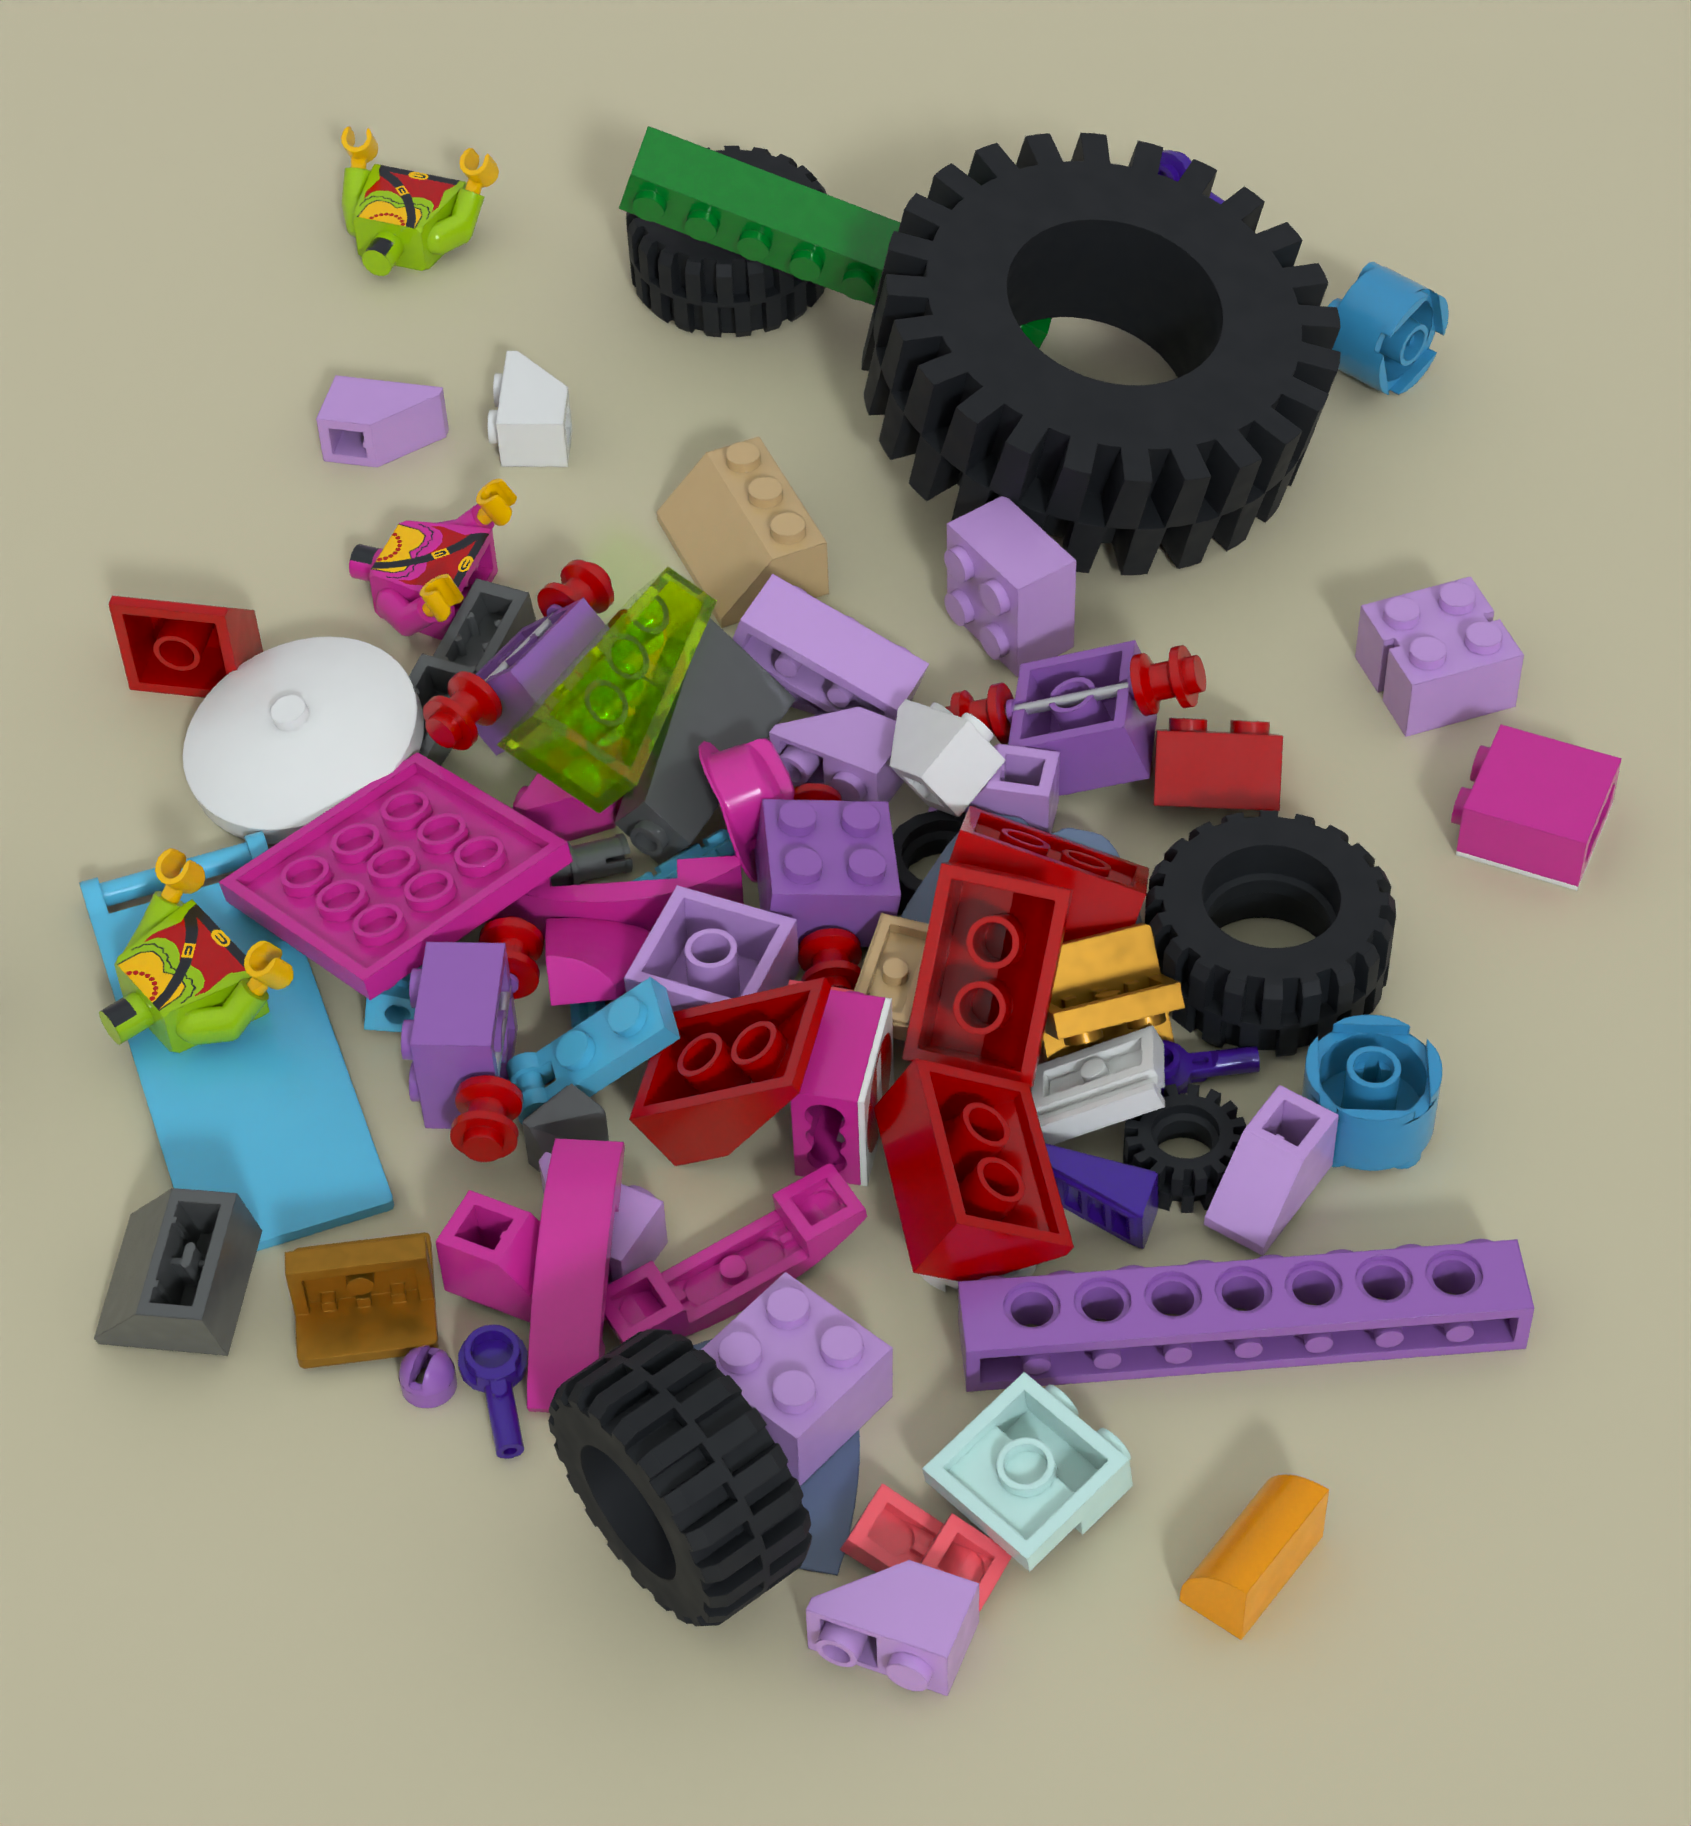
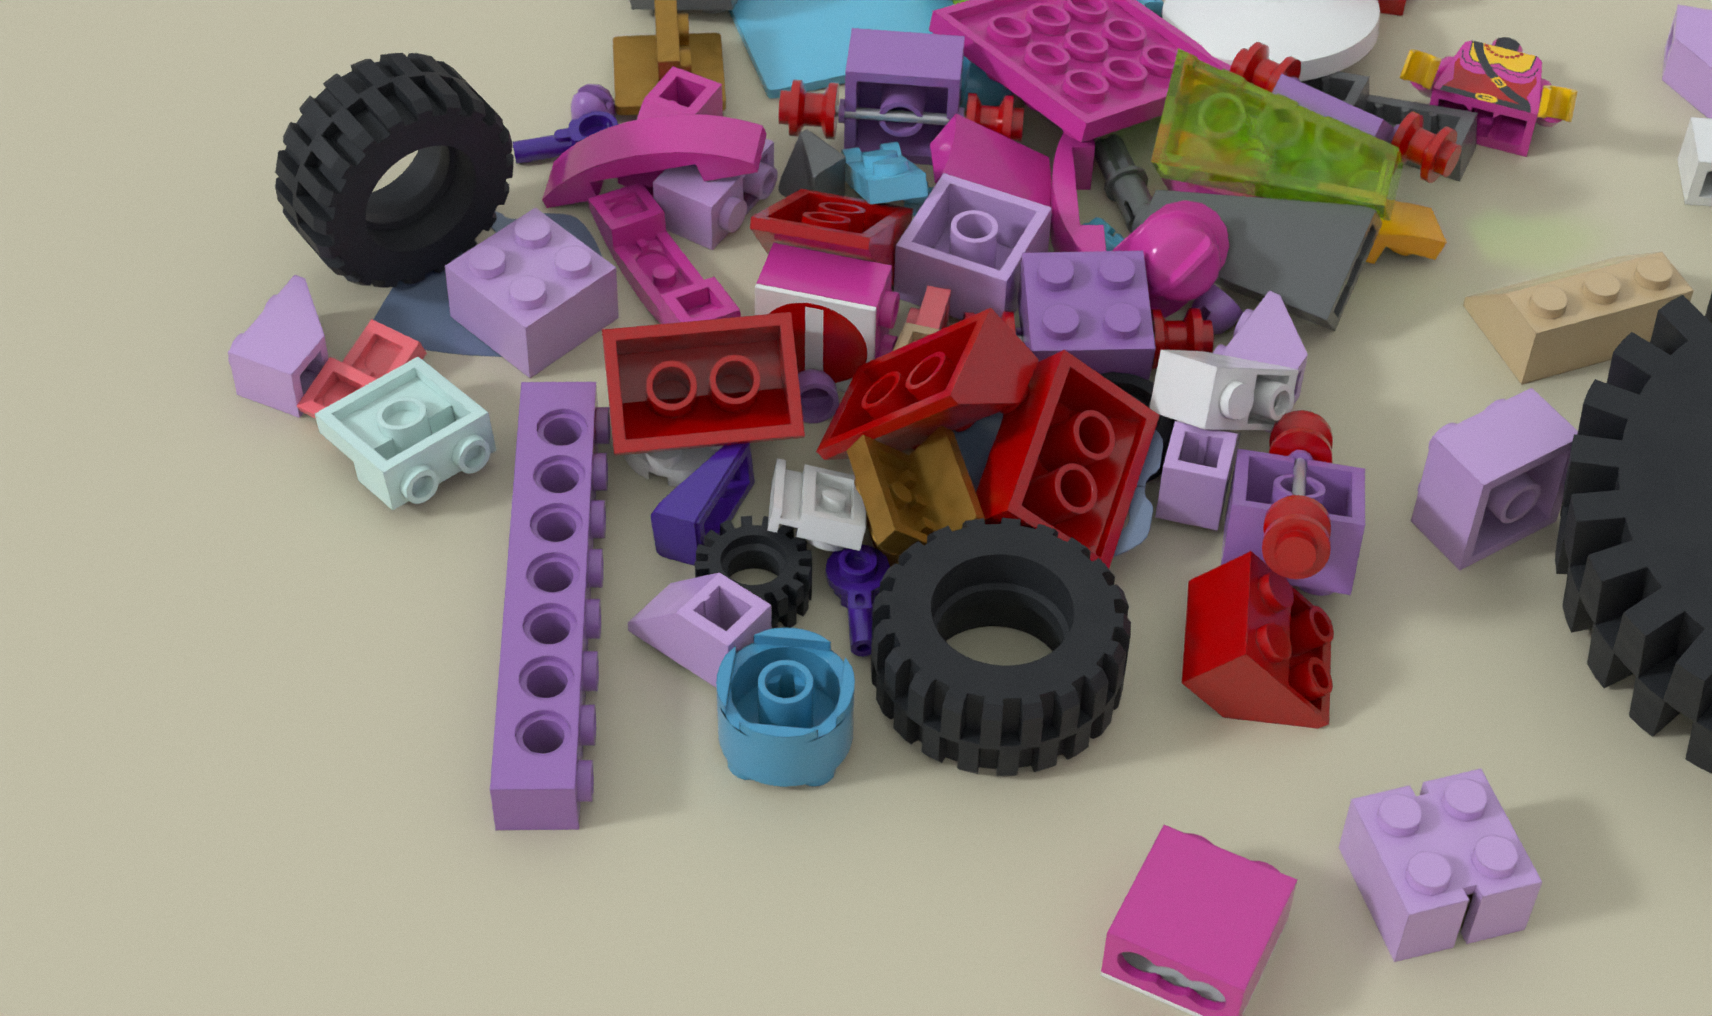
camera: 90 degrees right, 0 degrees up
(824, 655) = (1378, 338): lavender wedge -> none
(1258, 1553) = (295, 580): light orange brick -> none

